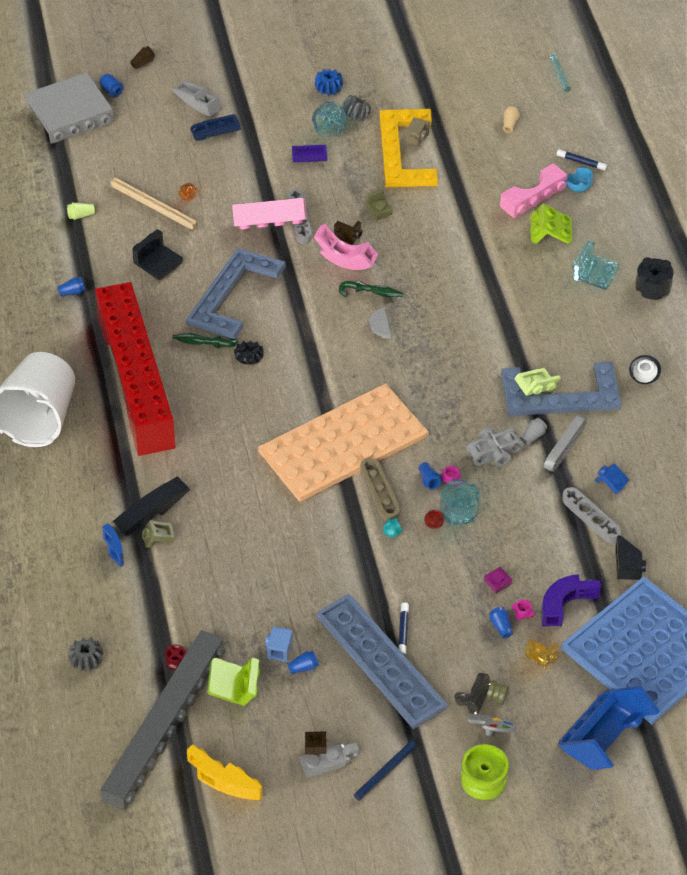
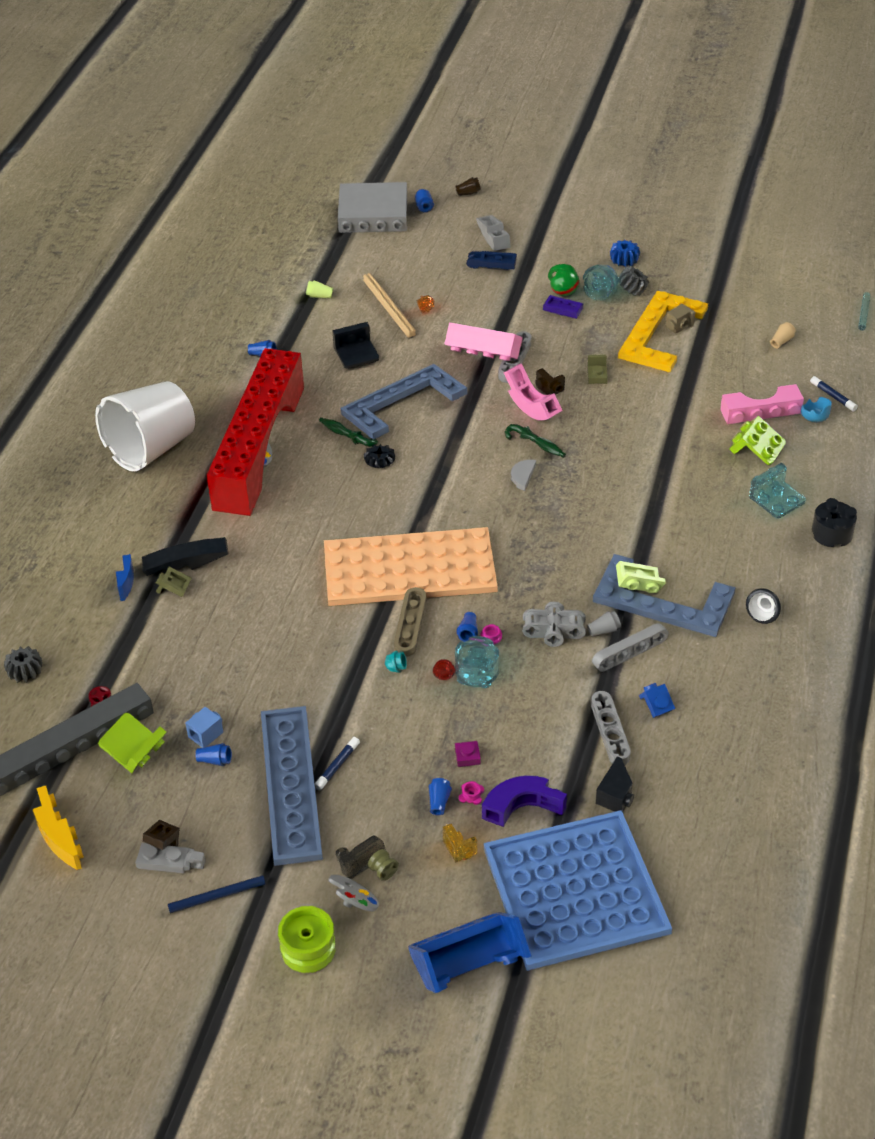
camera: 30 degrees right, 5 degrees down
(299, 128) = (565, 281): none -> green helmet

